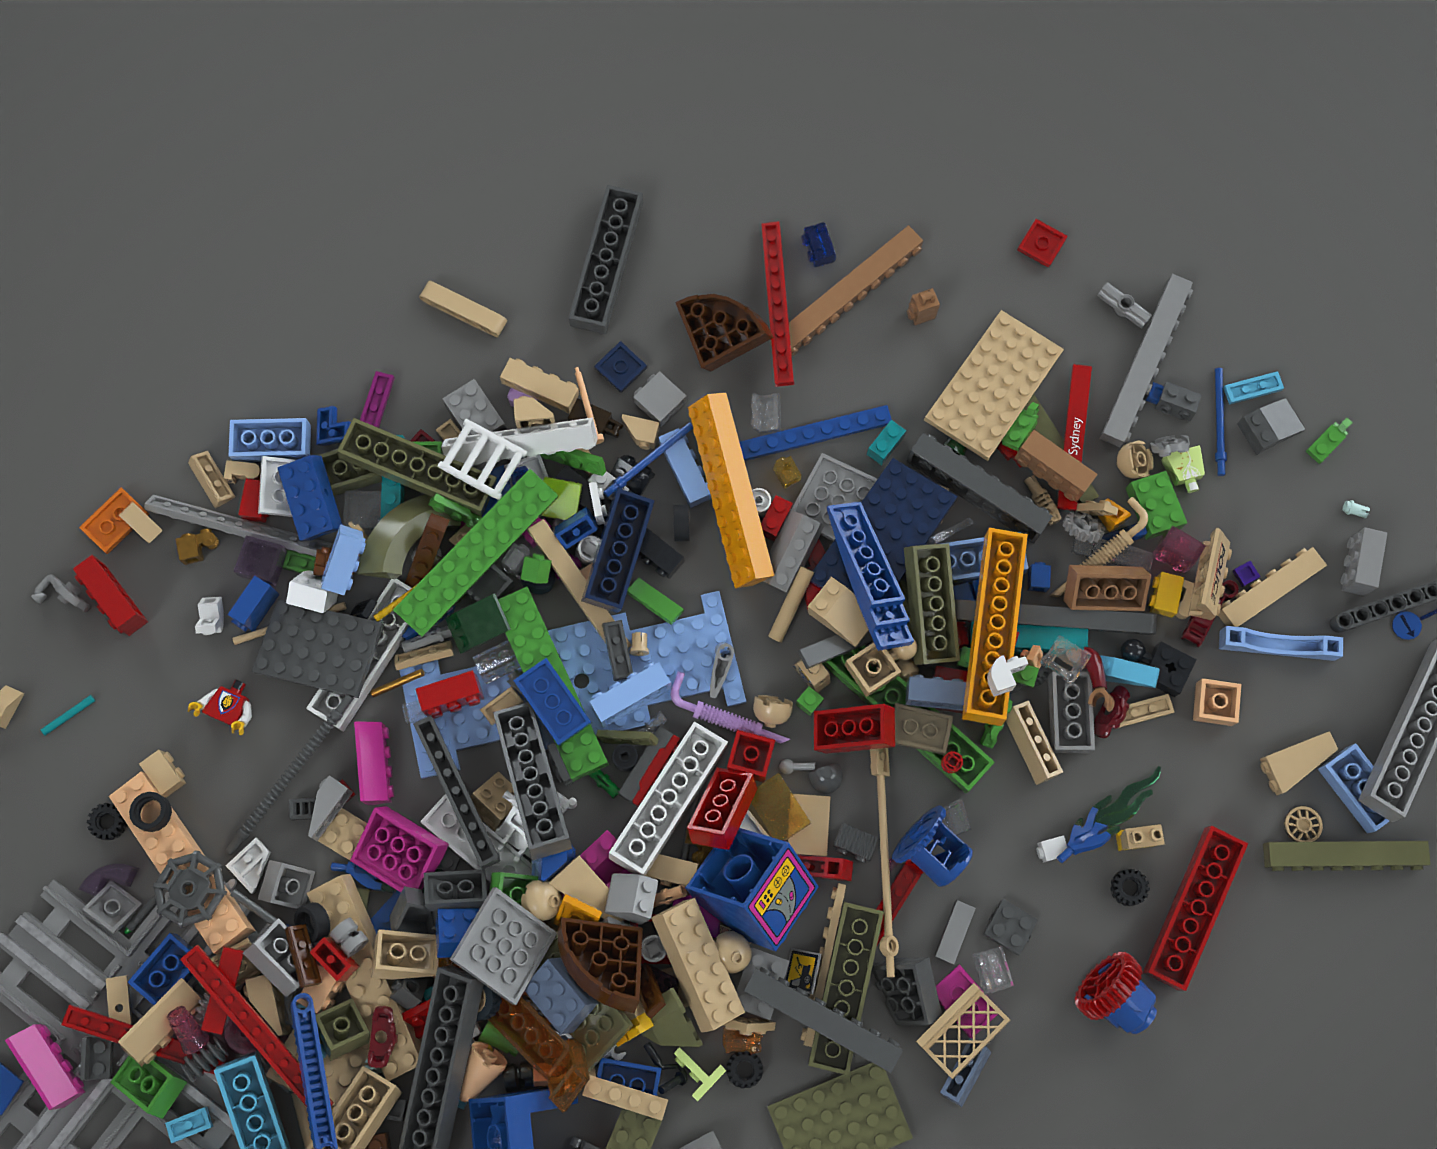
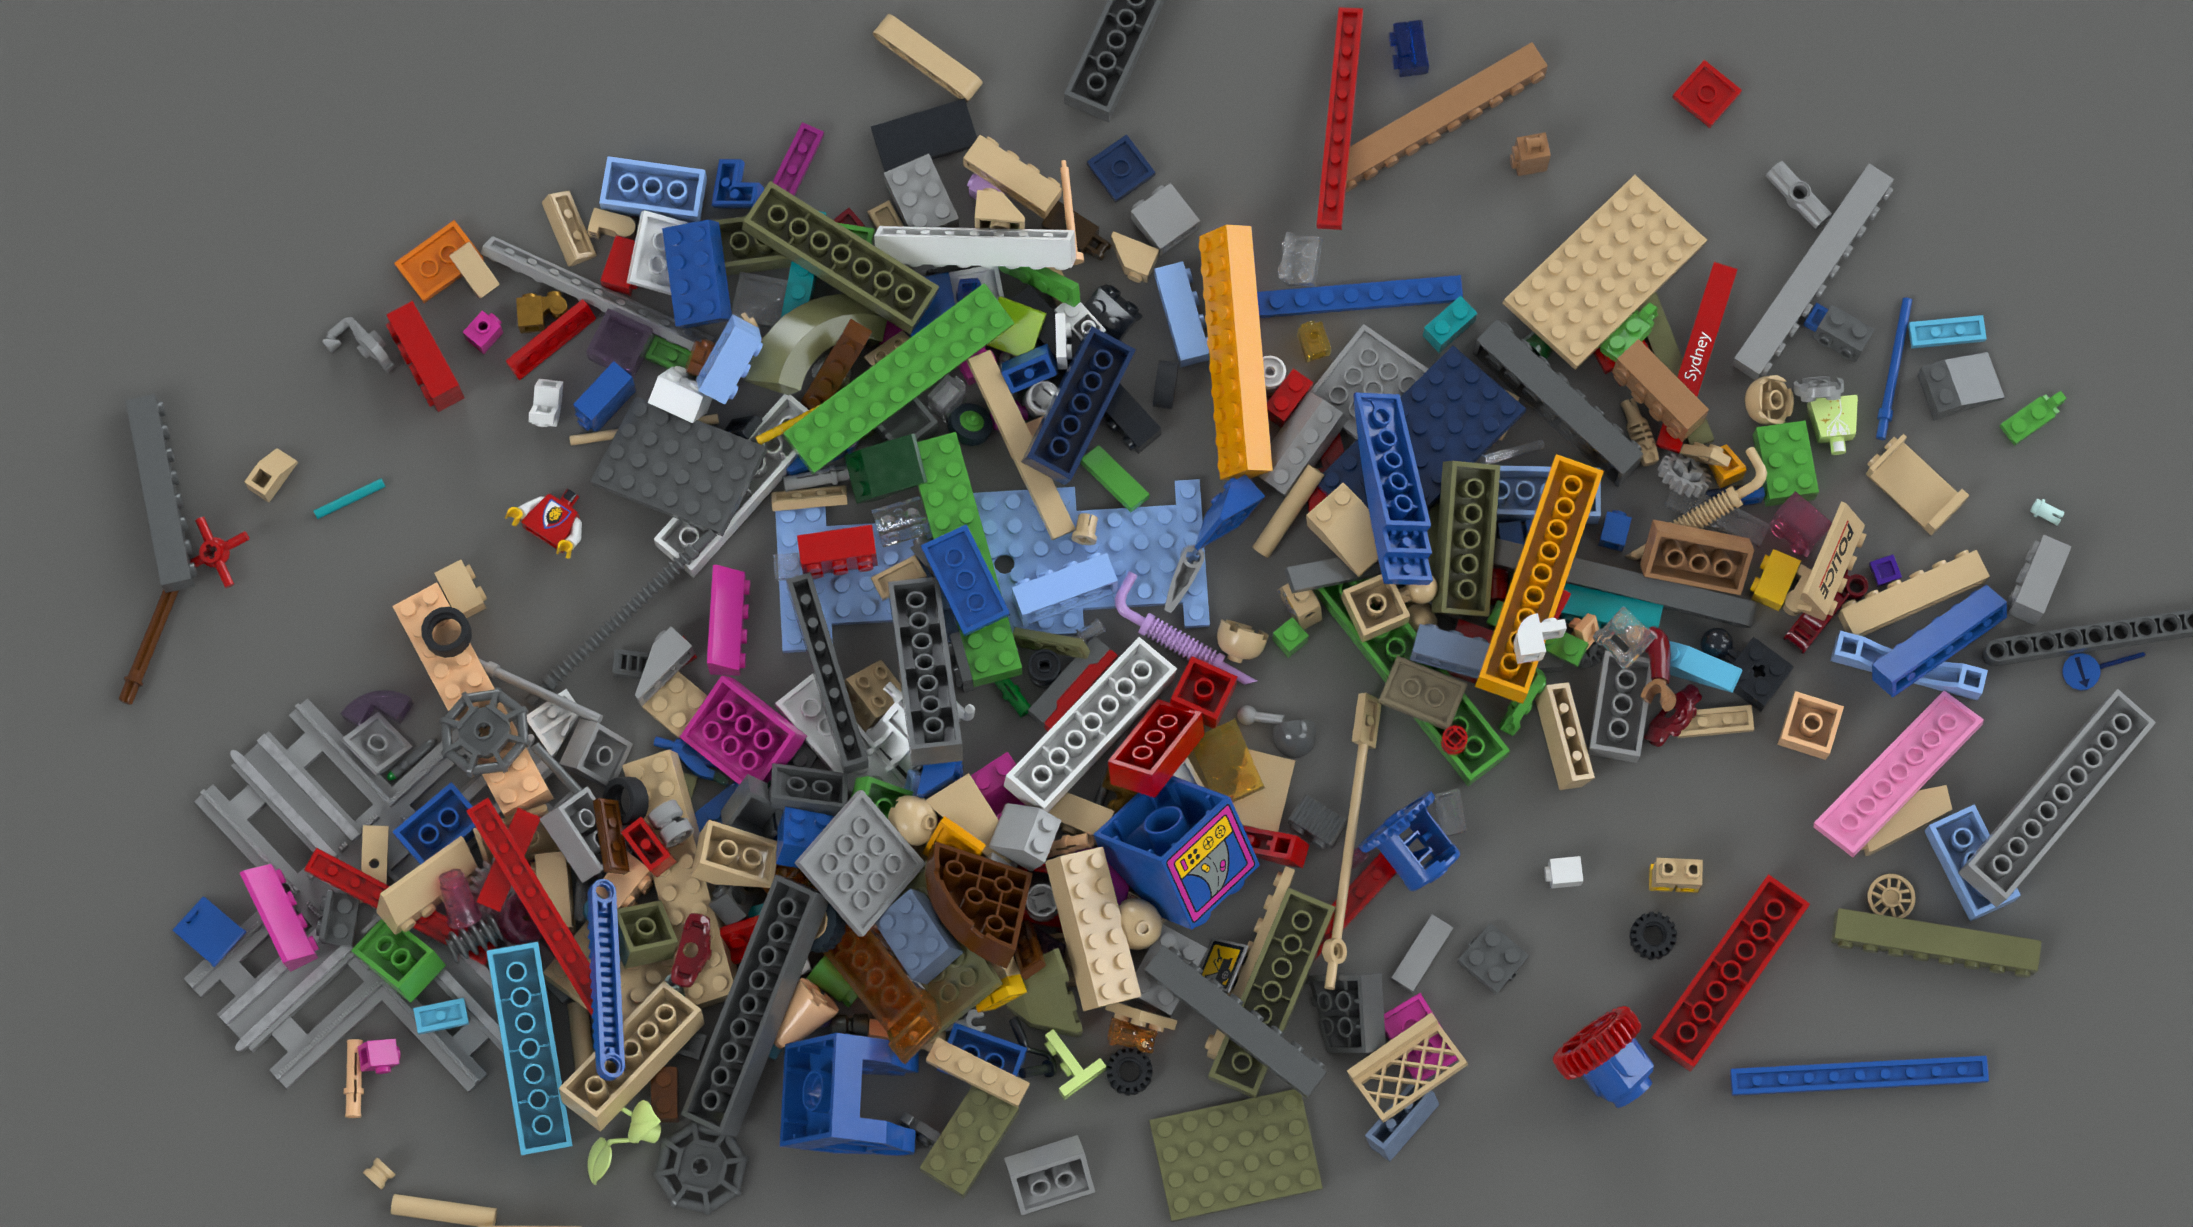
camera: 10 degrees right, 0 degrees up
(95, 819) = (383, 623): black tyre -> none
(155, 568) = (483, 331): none -> dark pink brick
(197, 832) = (494, 671): none -> light grey bar
(207, 566) = (550, 339): none -> red plate
(398, 682) = (771, 527): pearl gold bar -> none
(455, 510) = (878, 319): bright green hinge -> none
(474, 362) = (931, 132): none -> black tile
(485, 435) = (933, 231): white bar -> none
(536, 568) = (970, 411): bright green brick -> none
(617, 650) = (1056, 530): dark grey tile -> none
(621, 482) = (1097, 318): blue bar -> none
(721, 328) = (1260, 140): reddish brown brick -> none
(745, 611) = (1229, 510): none -> blue slope
(854, 728) = (1339, 679): red brick -> none
(993, 970) = (1459, 1004): clear plate -> none
(1100, 819) = (1635, 846): piece -> none
(1254, 506) = (1915, 485): none -> tan panel
(1292, 729) = (1898, 773): none -> bright pink plate
(1300, 621) = (1939, 640): none -> blue brick
(1309, 971) = (1859, 1075): none -> blue plate

